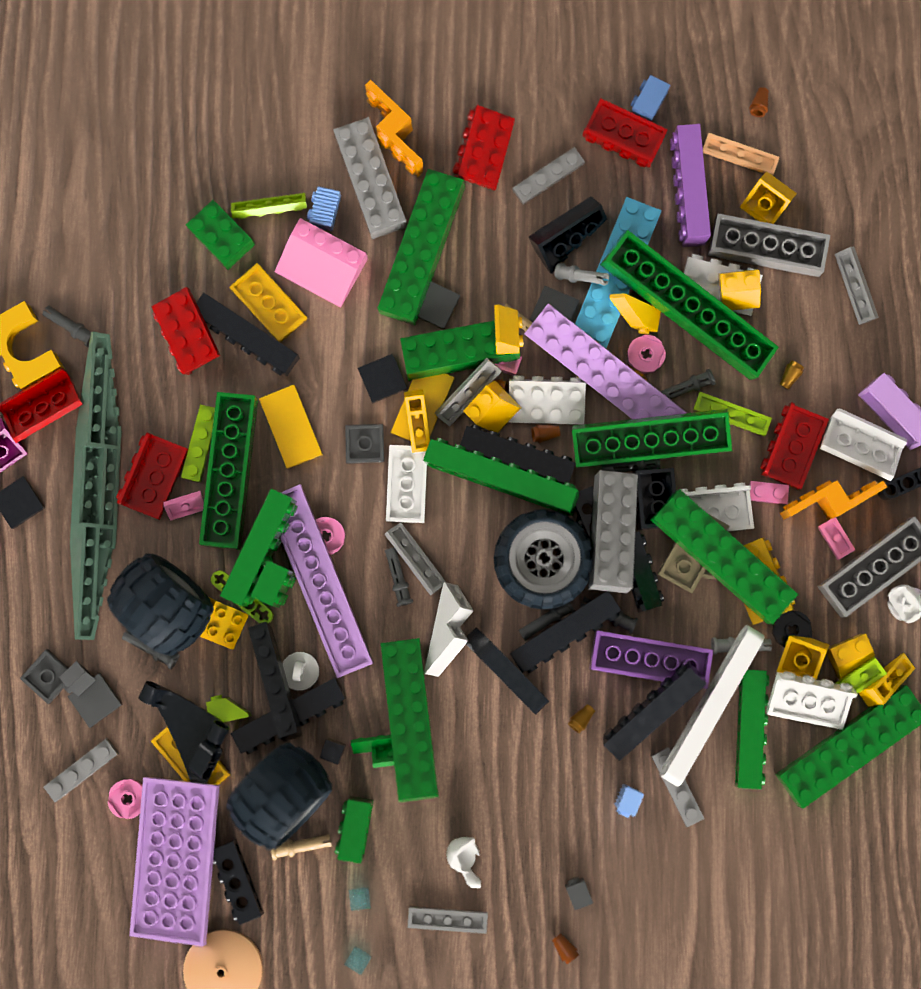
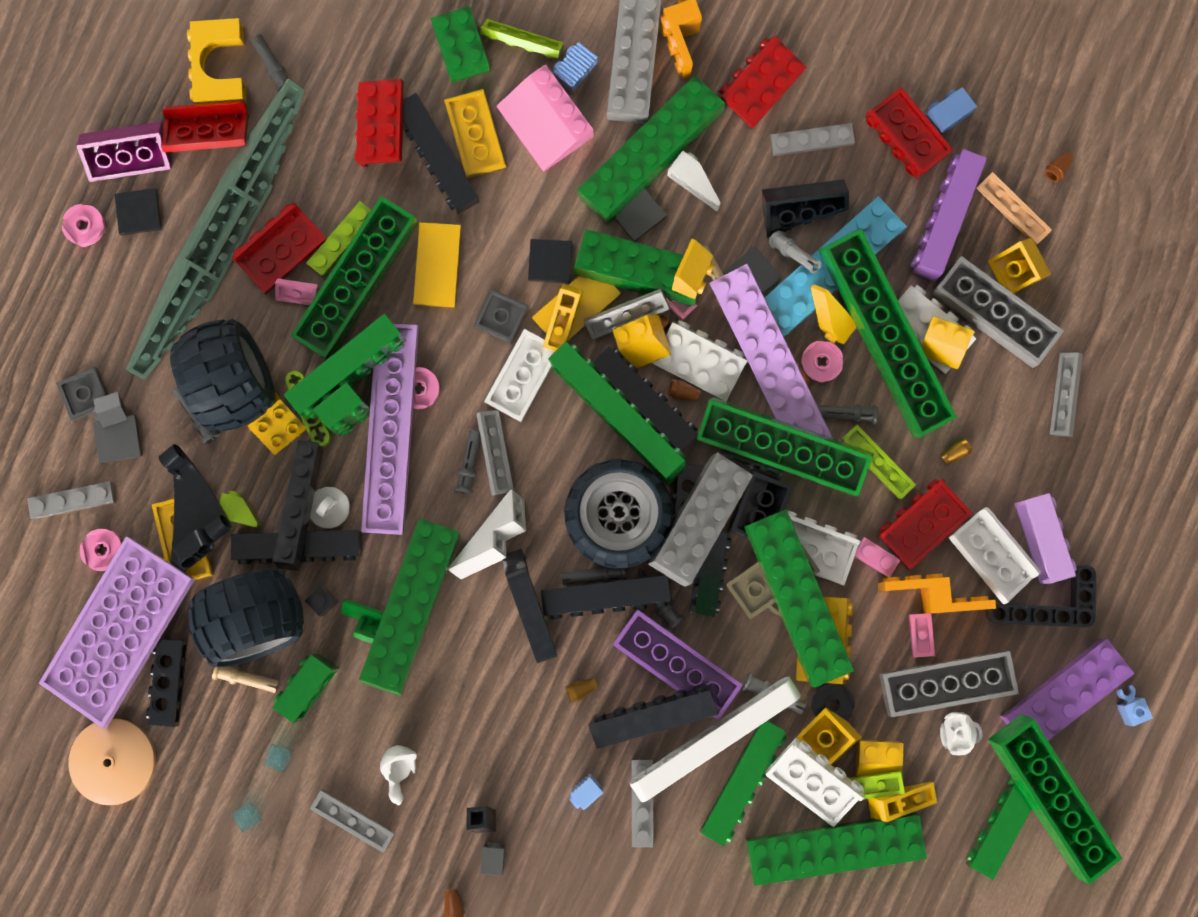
camera: 25 degrees right, 0 degrees up
(465, 253) = (691, 176): none -> white slope
(553, 866) = (481, 819): none -> black brick

